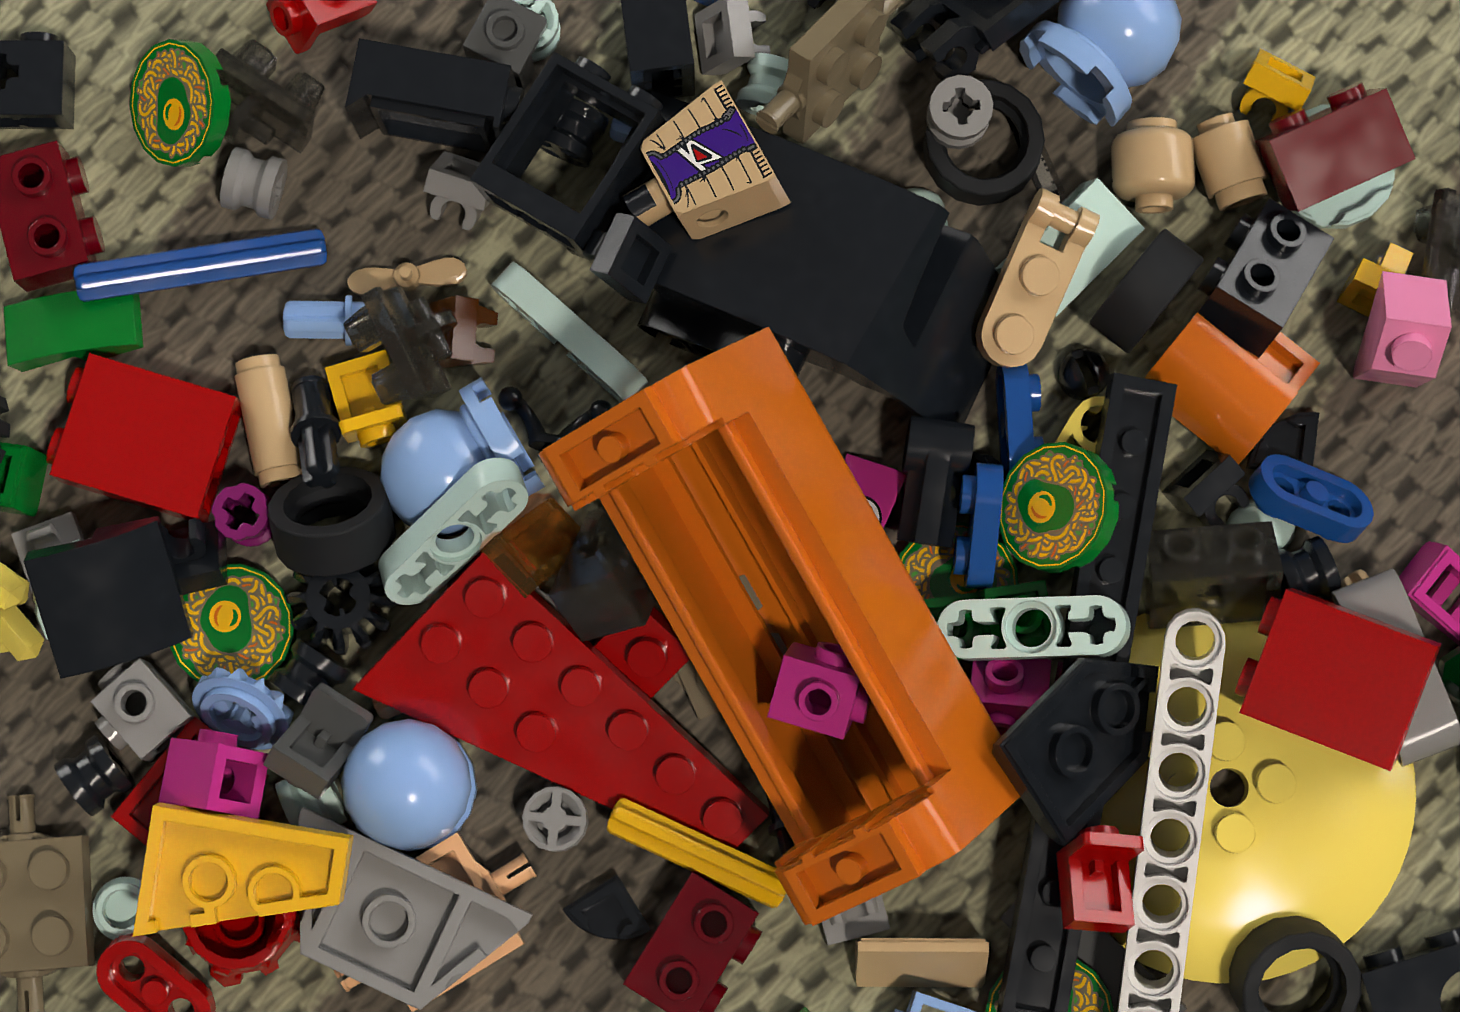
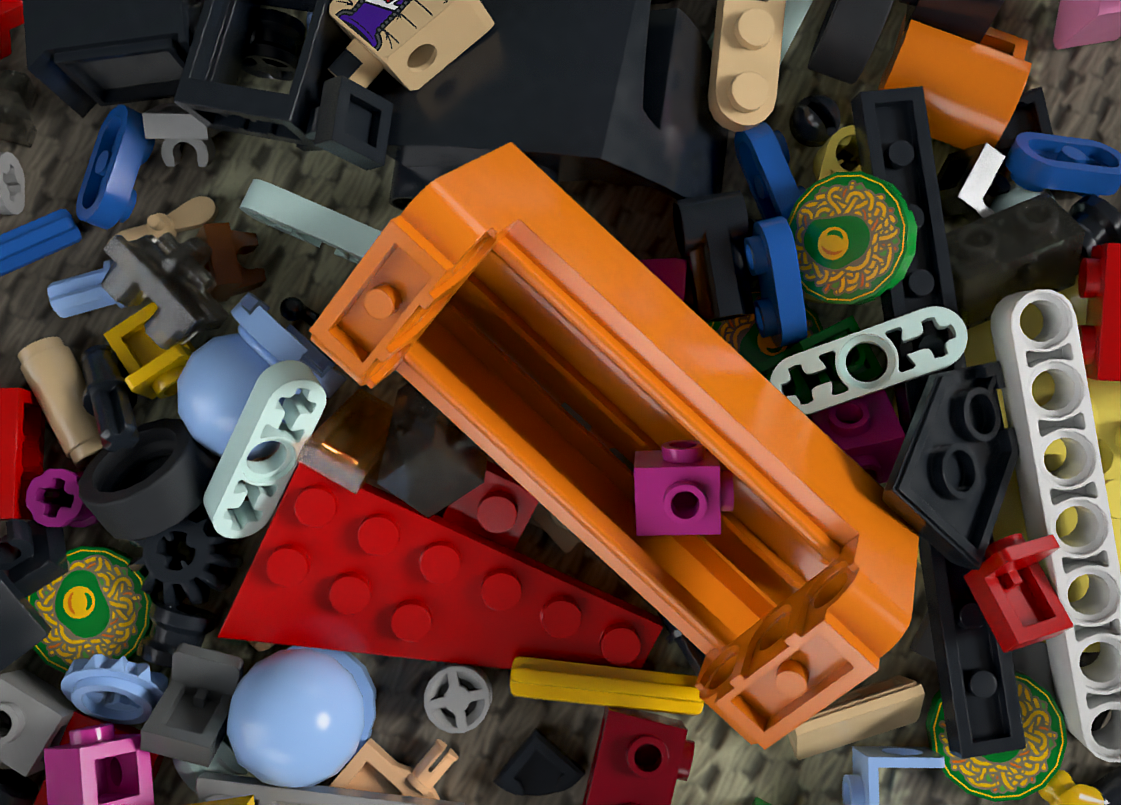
camera: 15 degrees left, 0 degrees up
(380, 205) = (112, 169): none -> blue plate

